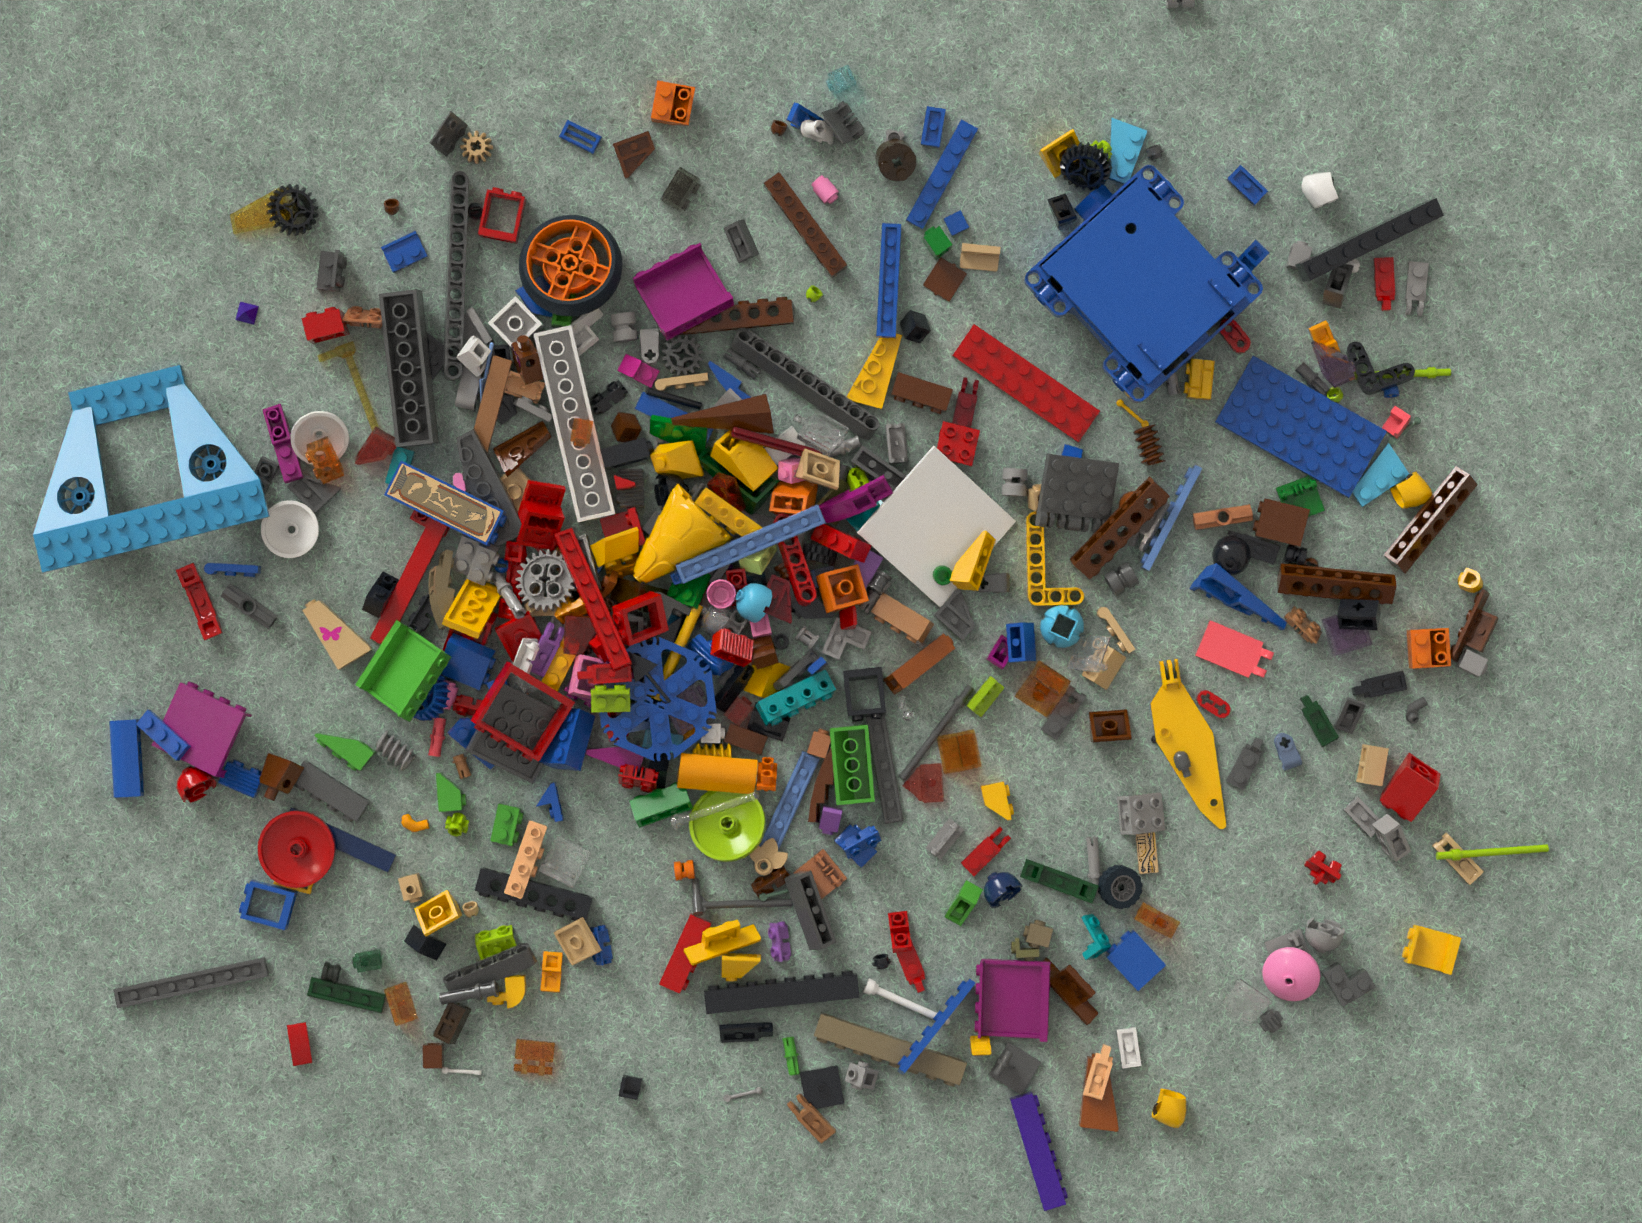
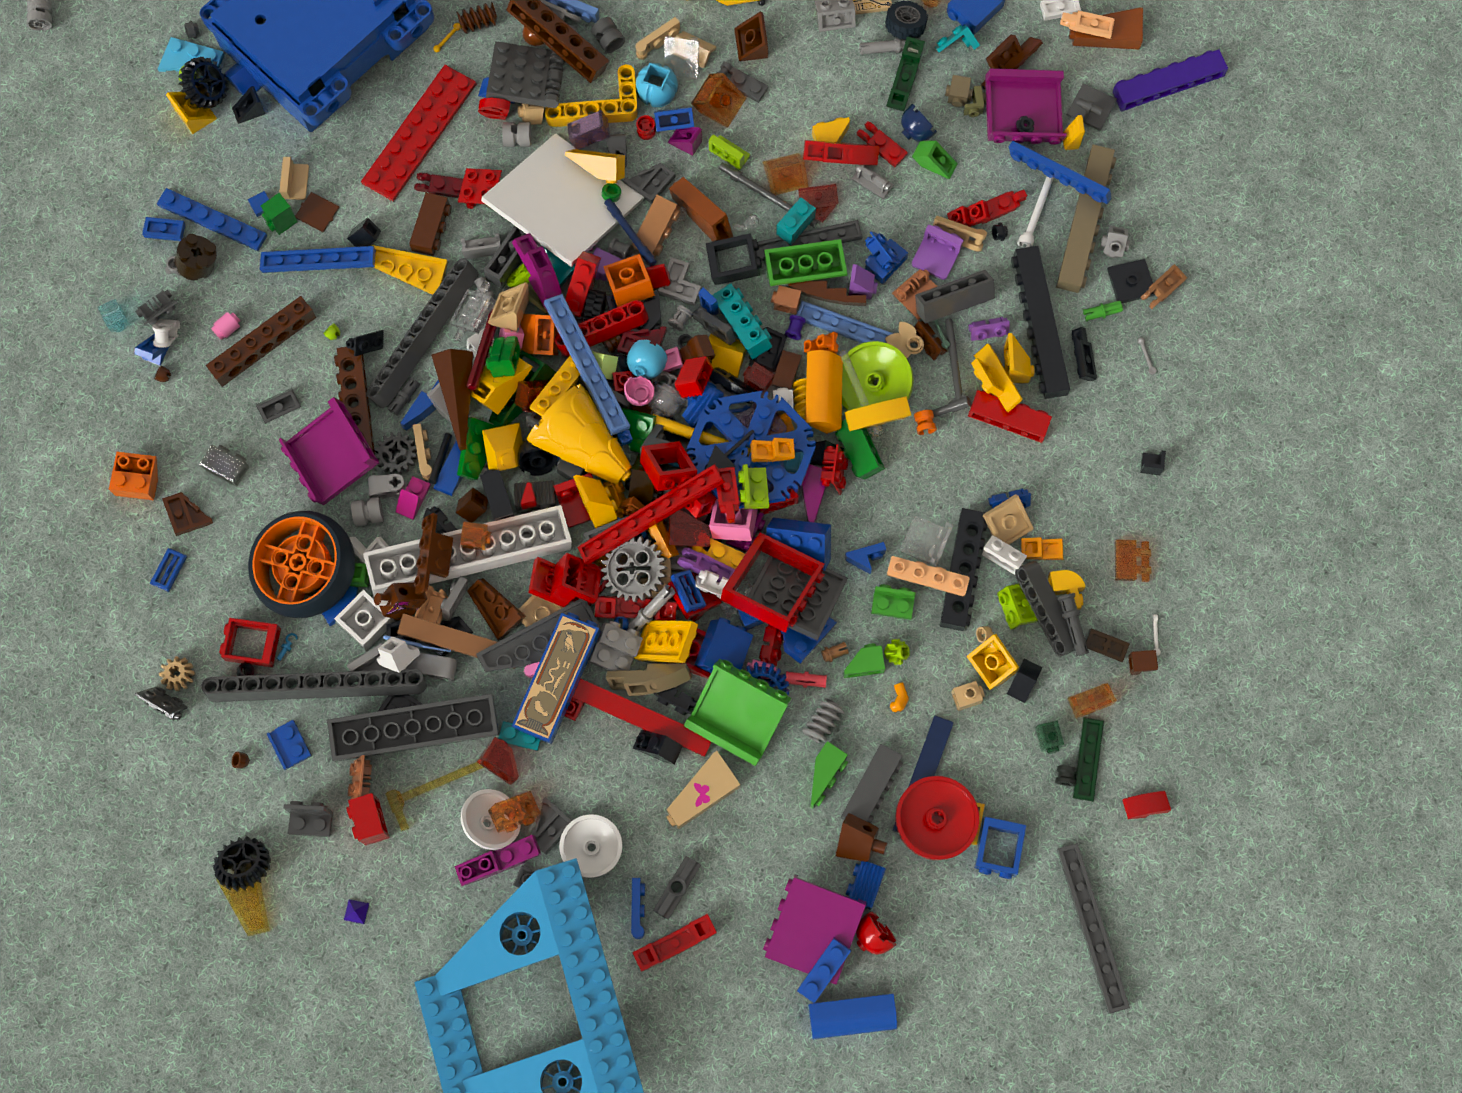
camera: 90 degrees left, 15 degrees down
(498, 248) = (285, 647): none -> dark azure hand
(515, 625) = (685, 593): none -> blue tile
(544, 934) = (1003, 554): none -> white bracket
(564, 392) = (434, 554): none -> reddish brown bracket
(648, 719) = (770, 451): none -> light orange slope
(686, 824) = (878, 413): none -> yellow slope
(764, 463) = (503, 356): none -> green brick
(790, 750) = (795, 327): none -> dark purple bush
(798, 332) = (366, 343): none -> black hinge
(861, 896) = (937, 252): none -> medium lavender bracket
(880, 920) = (964, 232): none -> tan plate
(899, 758) = (795, 221): none -> teal brick
(915, 580) = (643, 250): none -> dark blue piece
(970, 809) = (841, 152): none -> red slope
(991, 992) = (1025, 120): none -> black plate
(1012, 555) = (588, 130): none -> brick
(1015, 613) = (646, 123): none -> red wheel
(1040, 460) = (494, 108): none -> red piece

